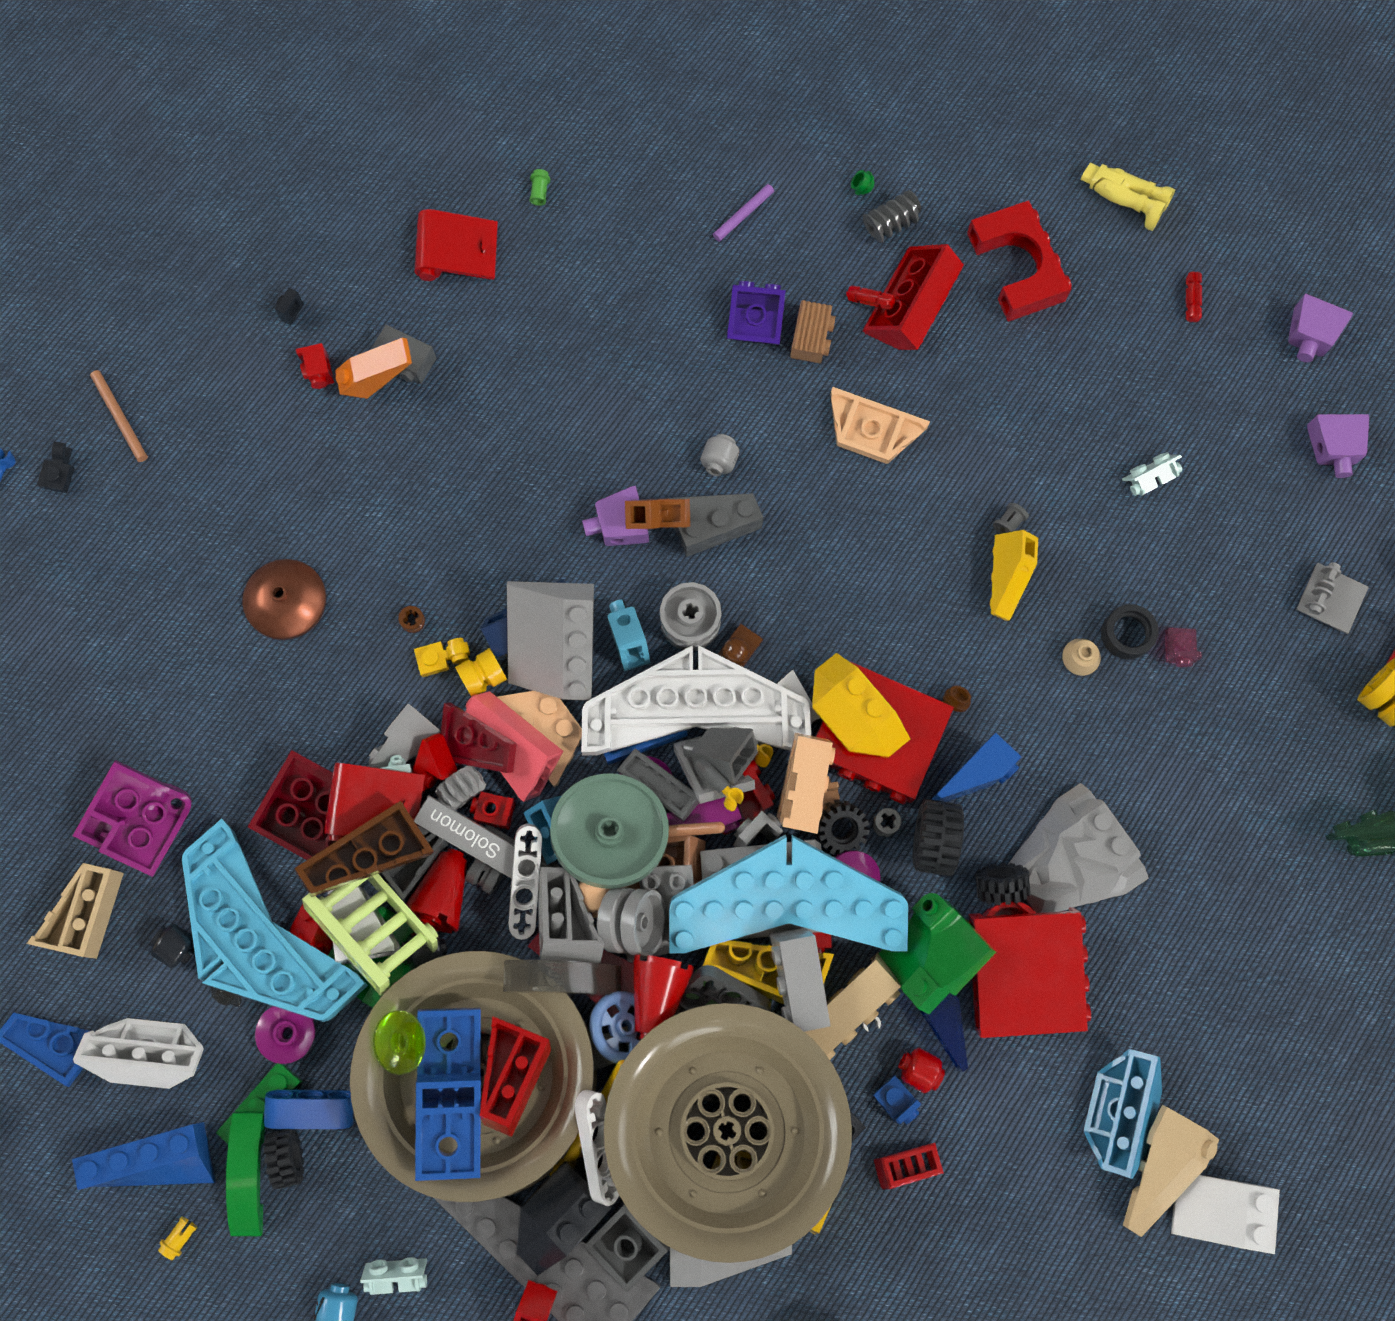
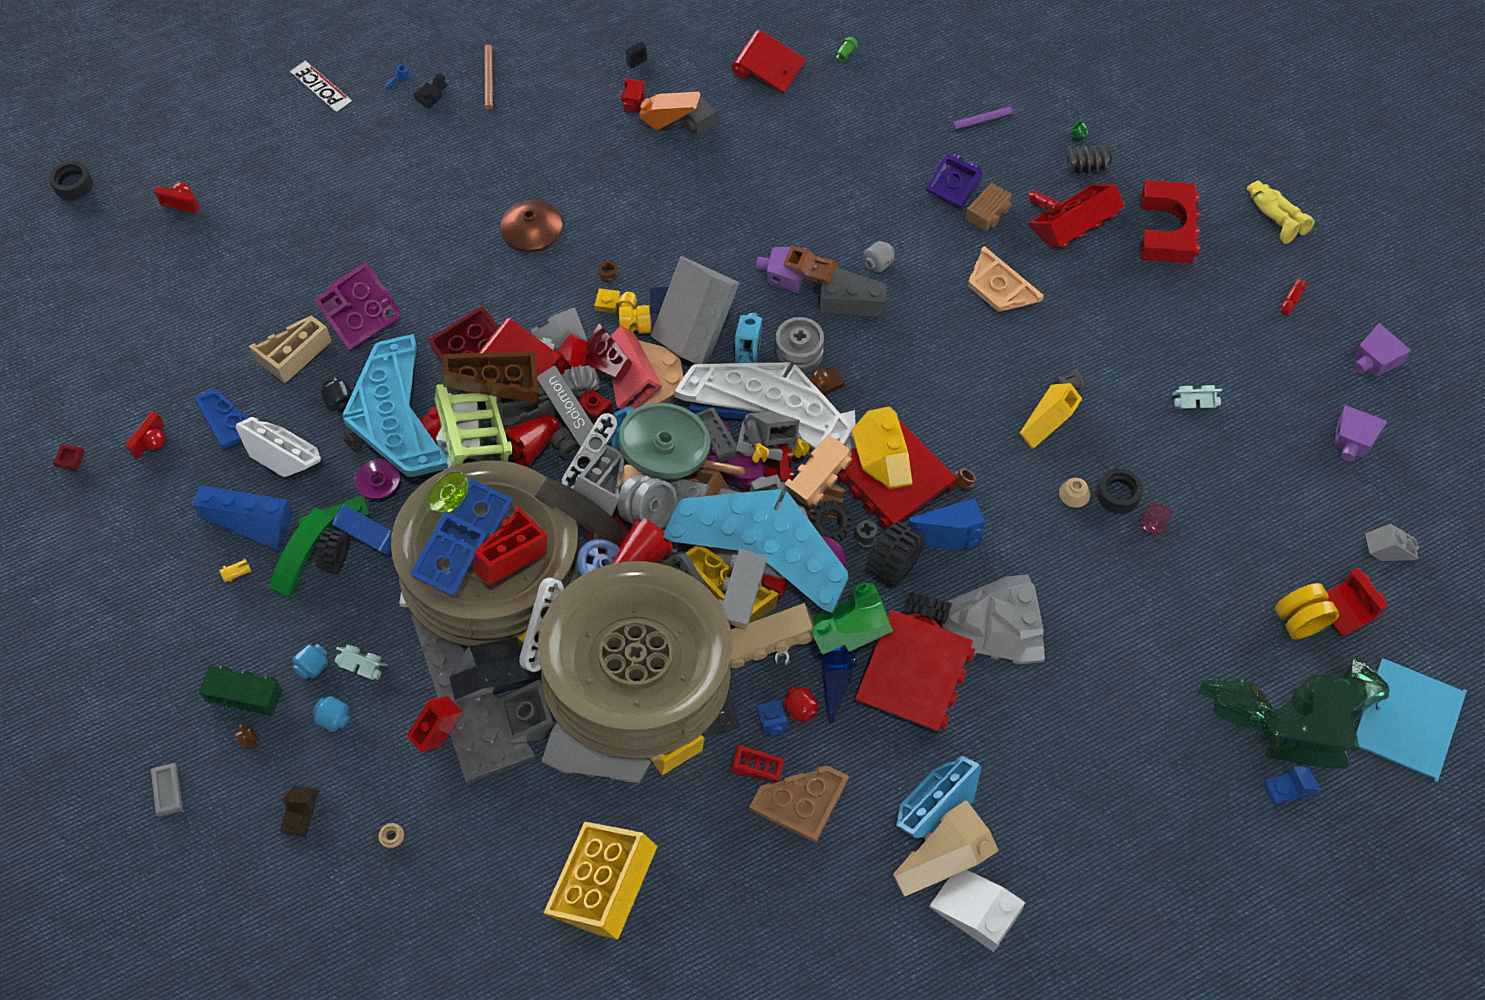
camera: 30 degrees right, 15 degrees down
(981, 1185) = (801, 801): none -> medium nougat plate
(1332, 597) = (1295, 536): light grey hinge -> none

